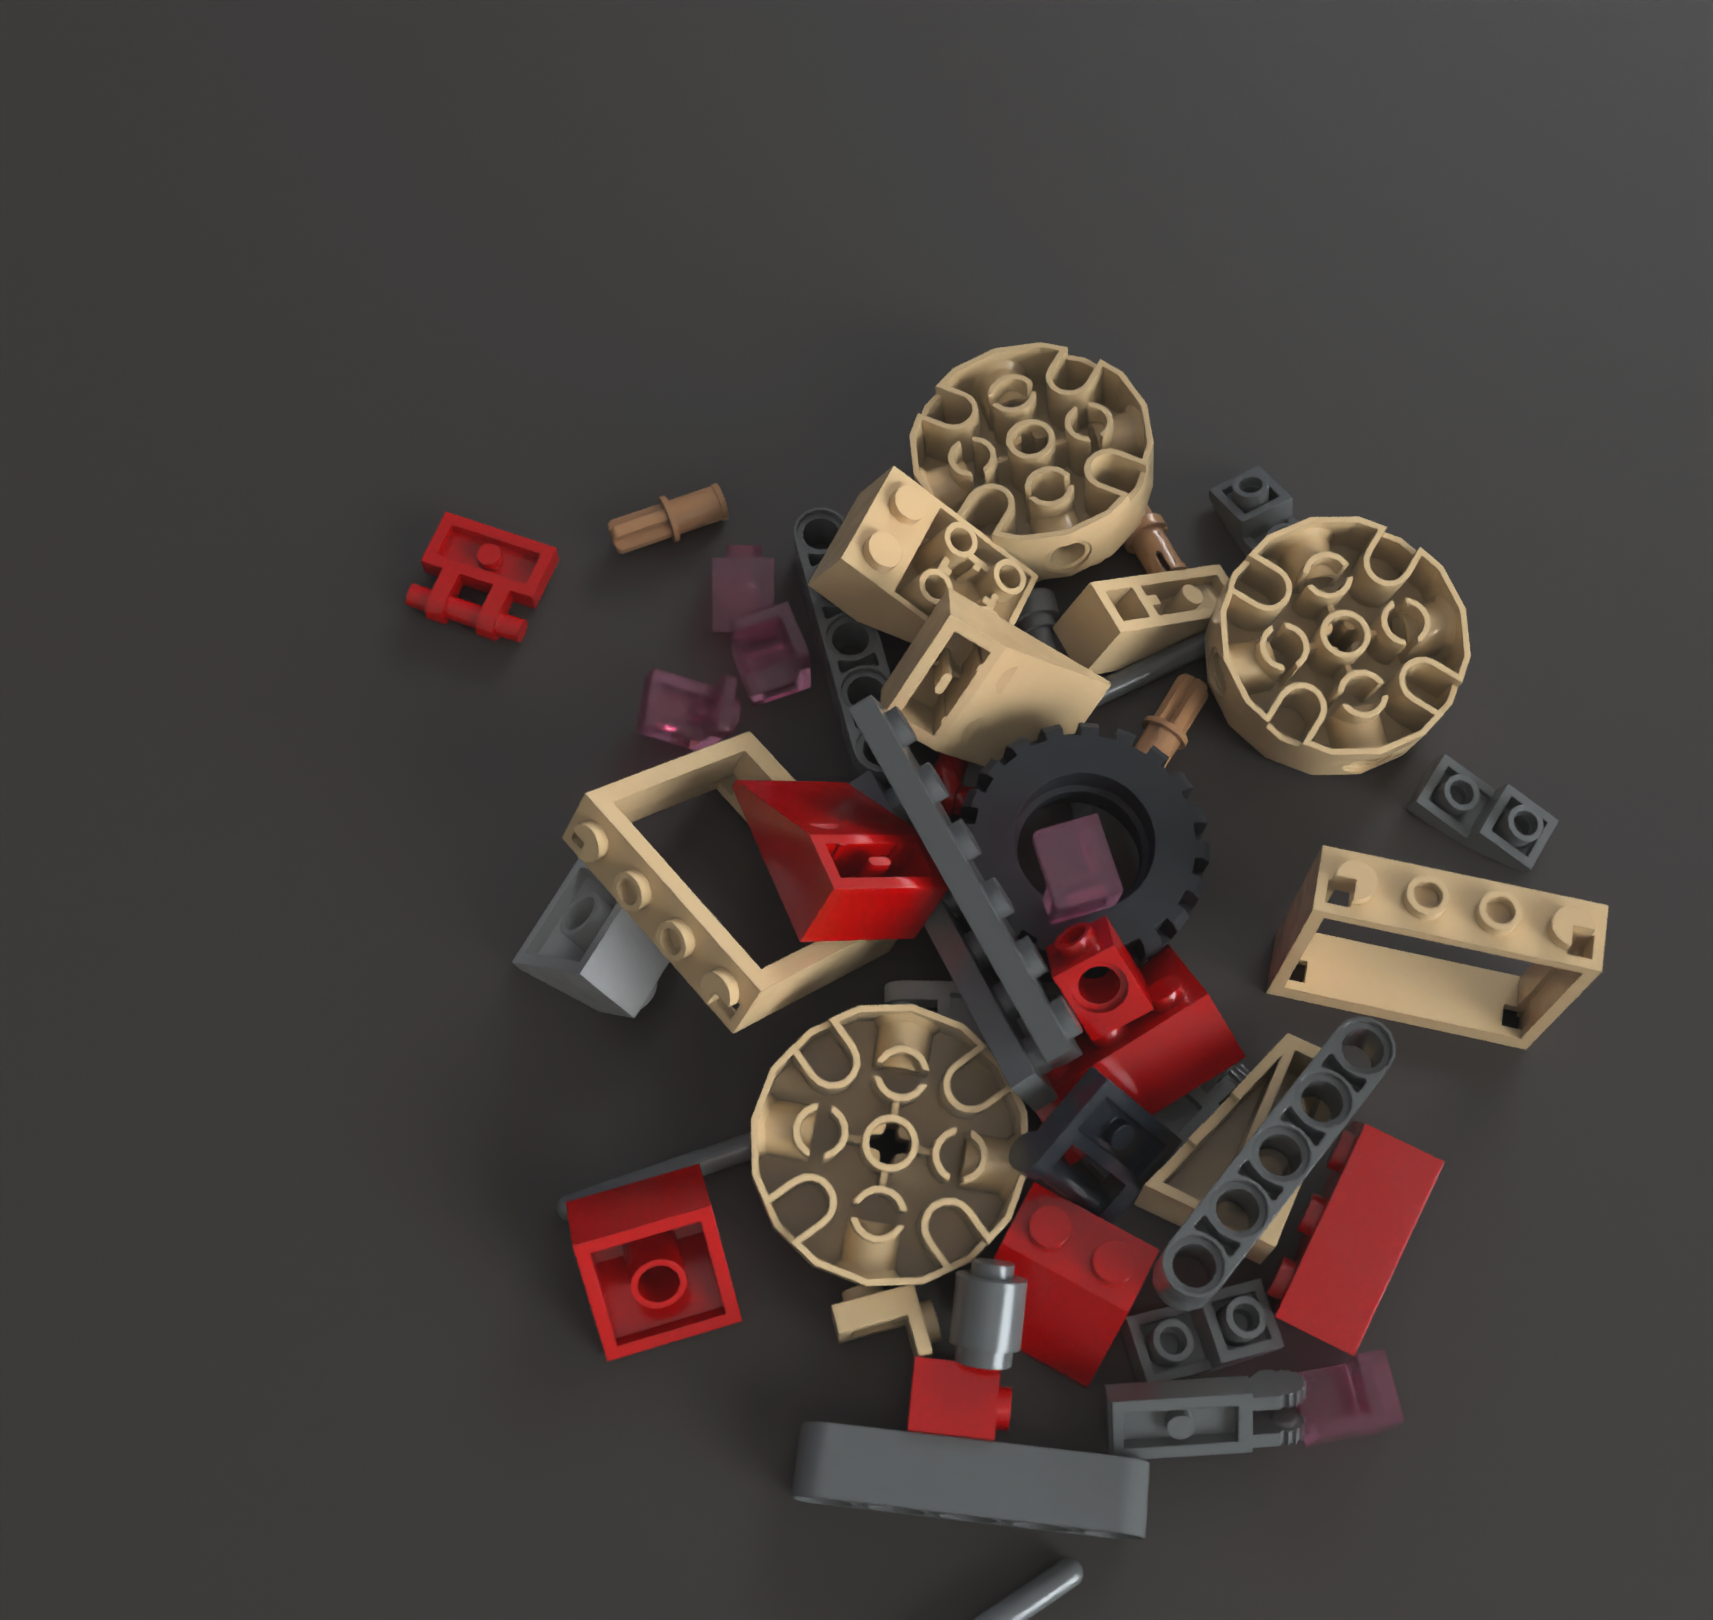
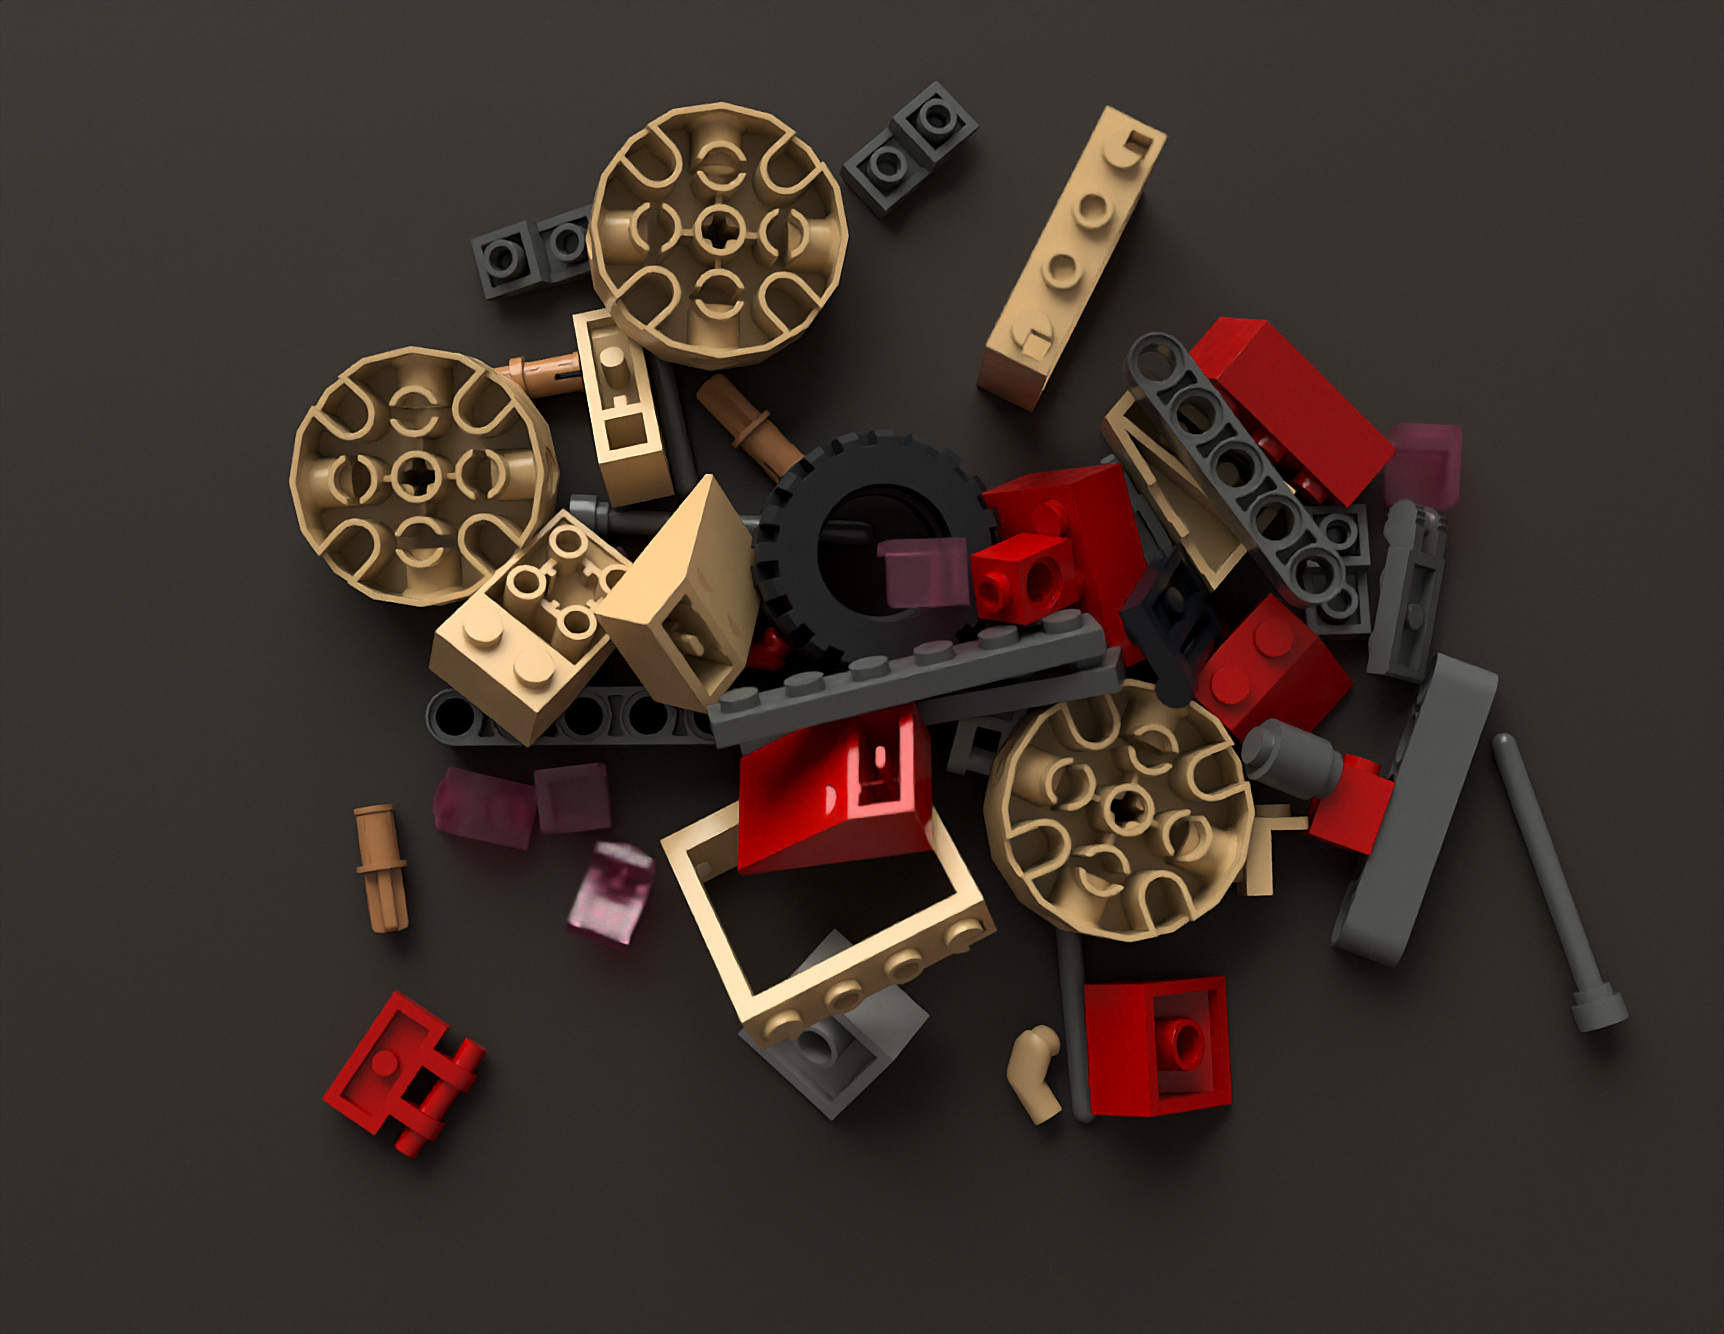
camera: 75 degrees left, 20 degrees up
(598, 1136) = (1028, 1070): none -> tan arm

